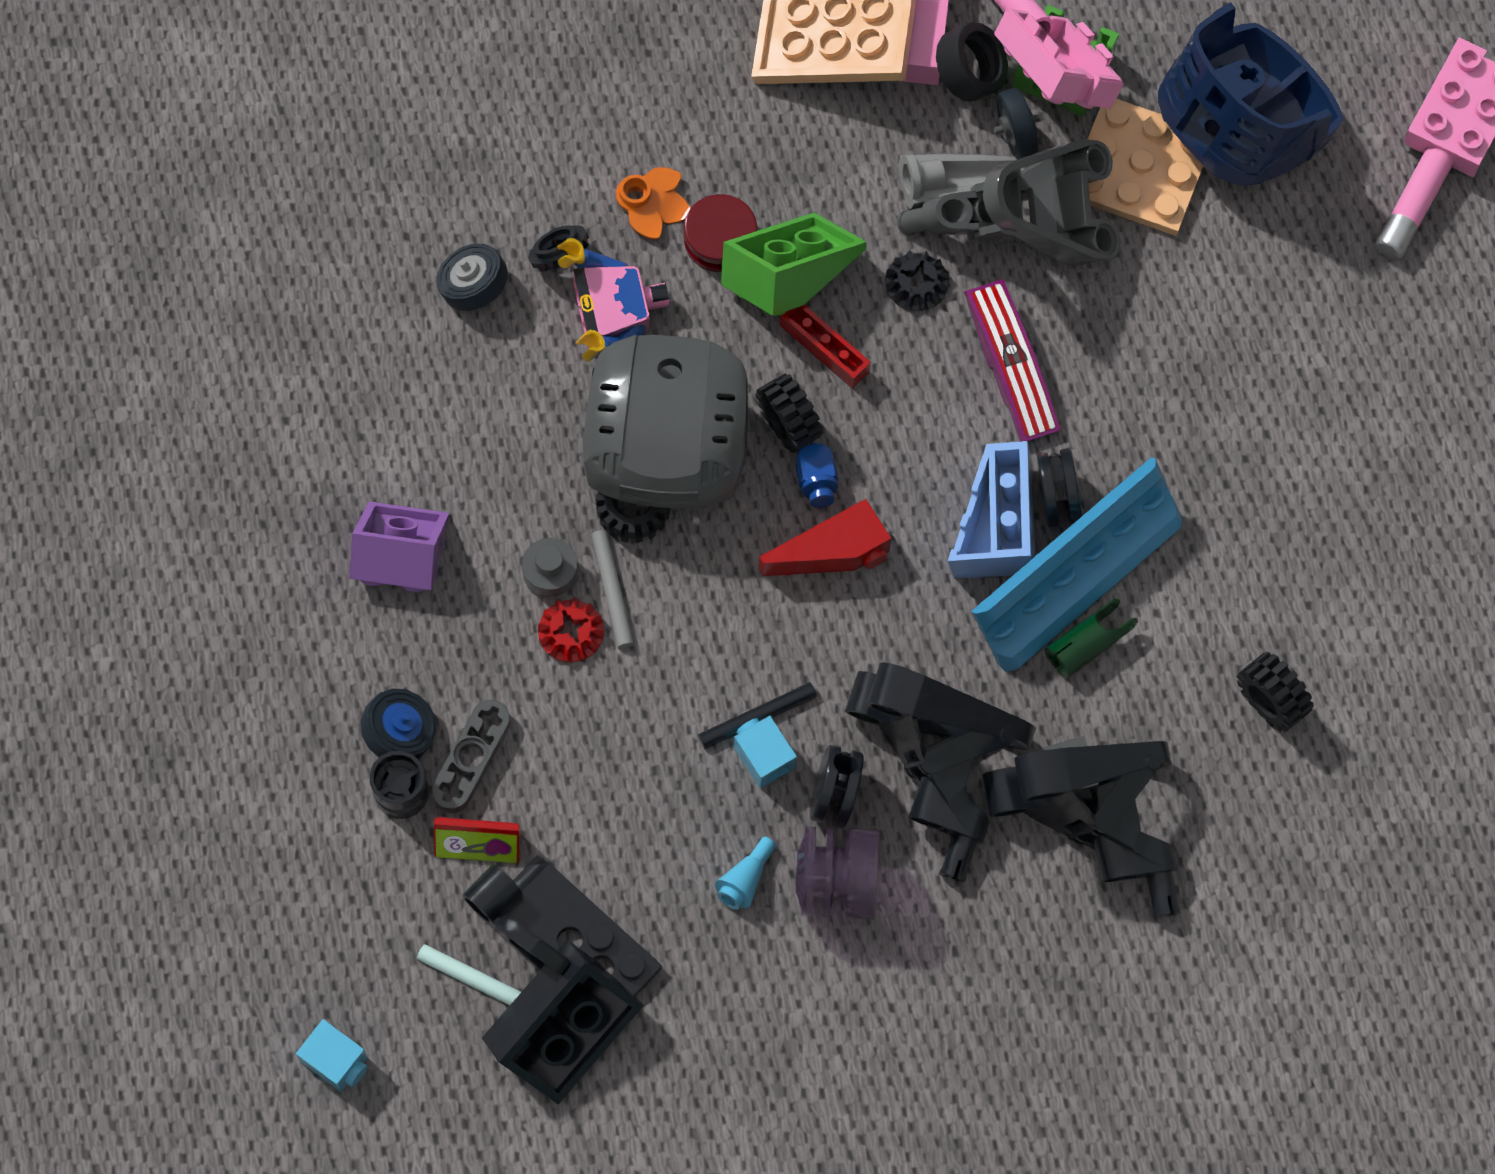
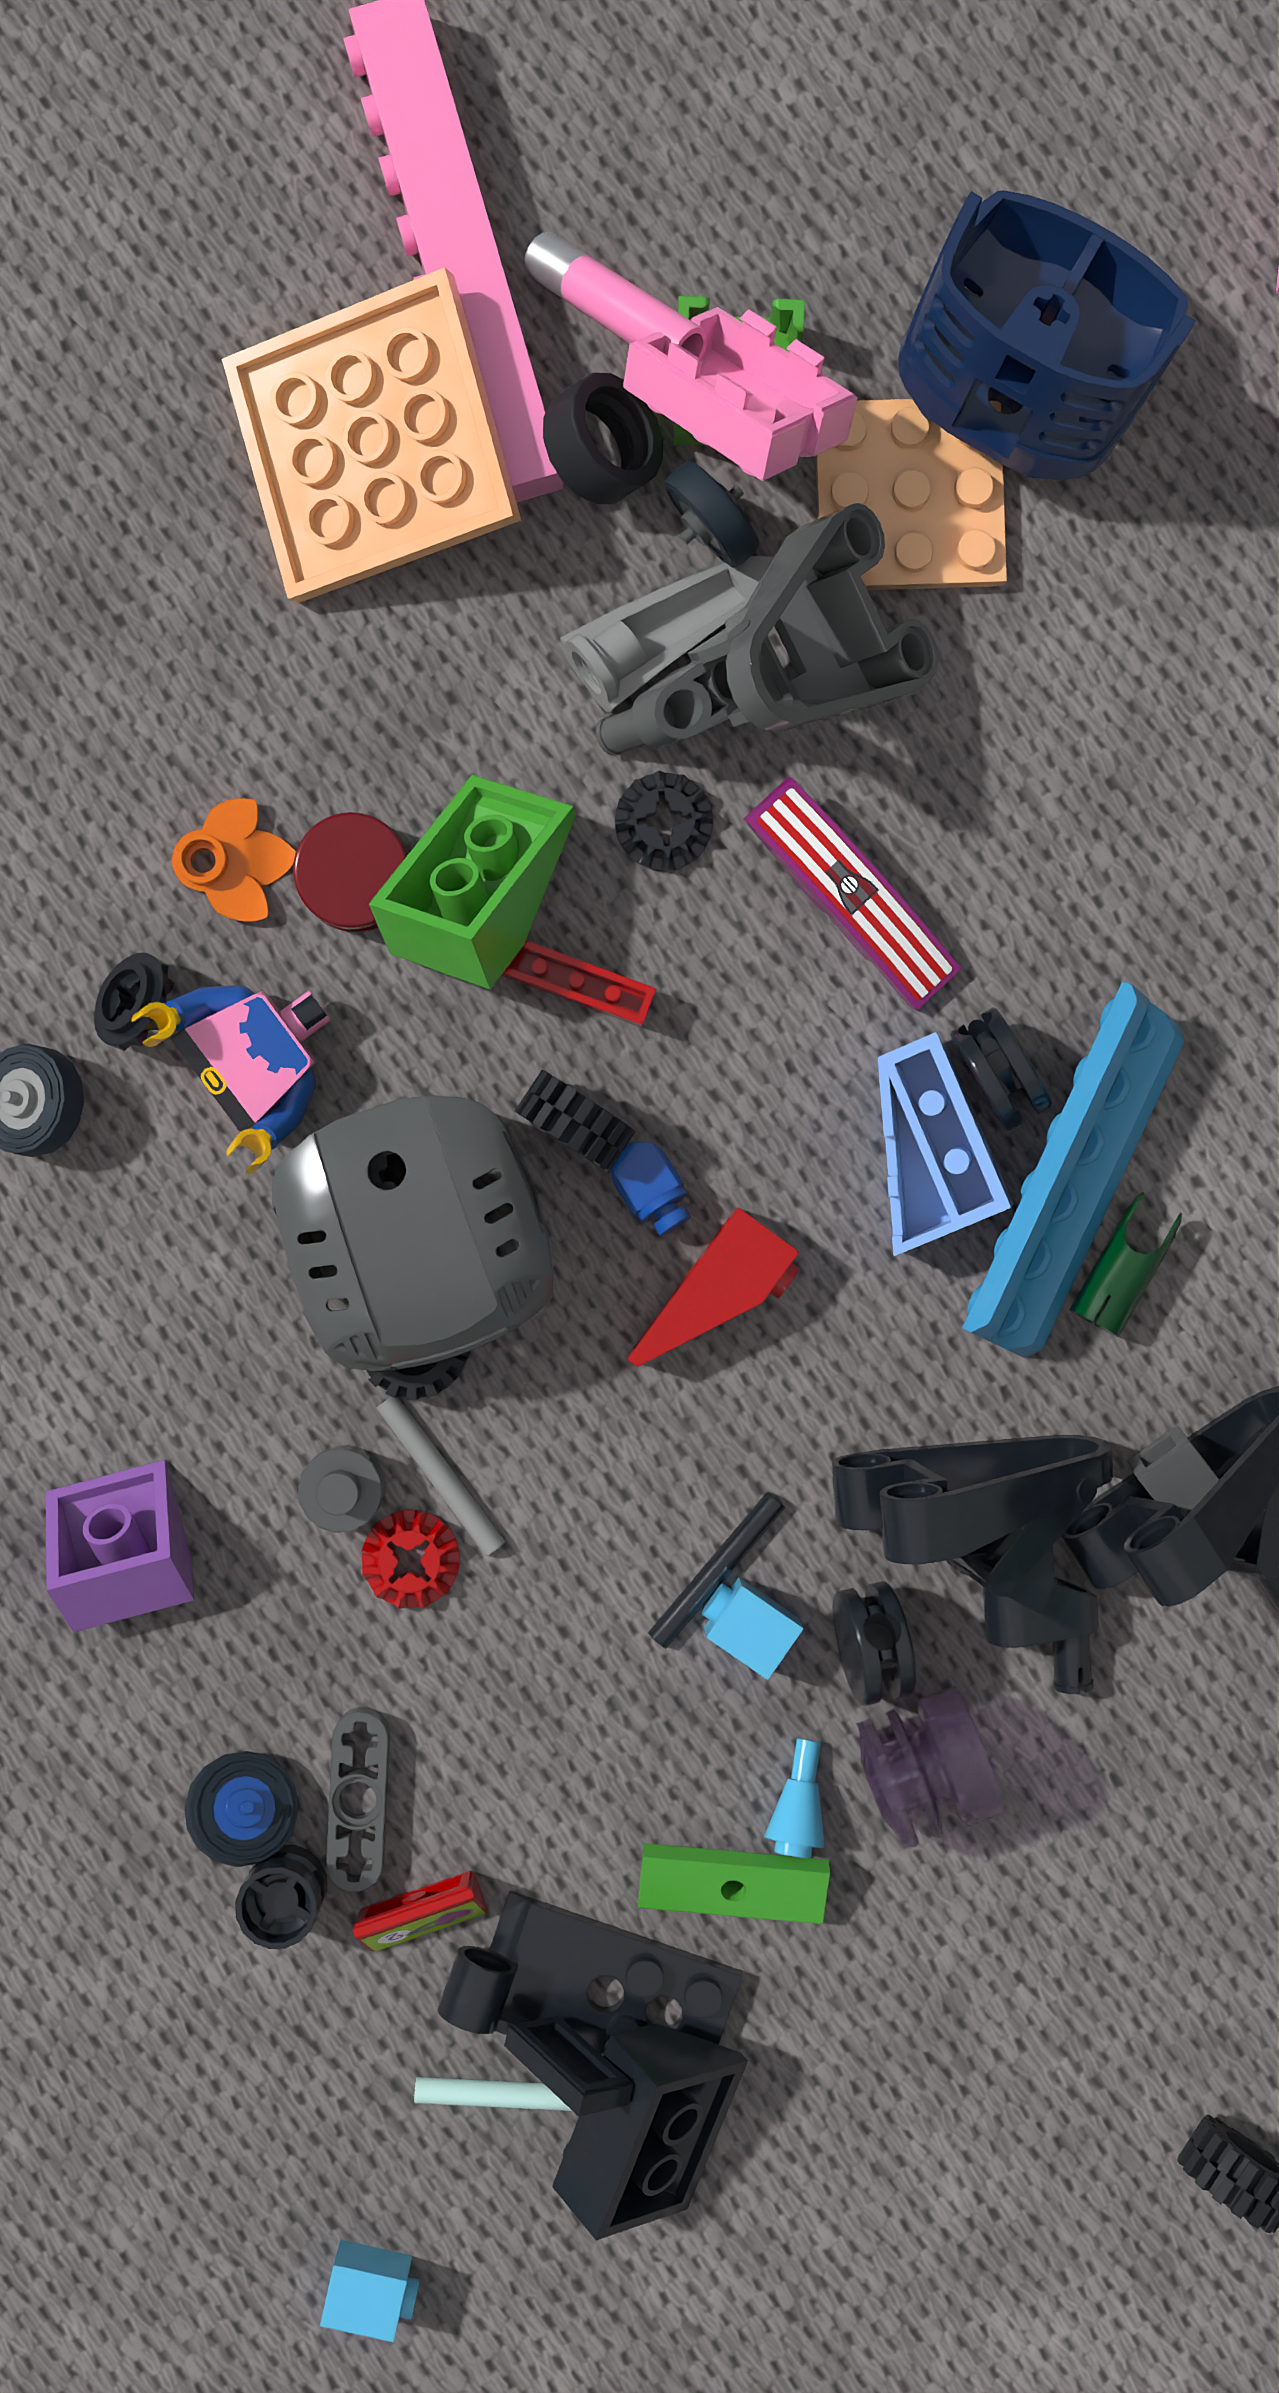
camera: 20 degrees left, 20 degrees up
(659, 890) = (733, 1883): none -> bright green tile

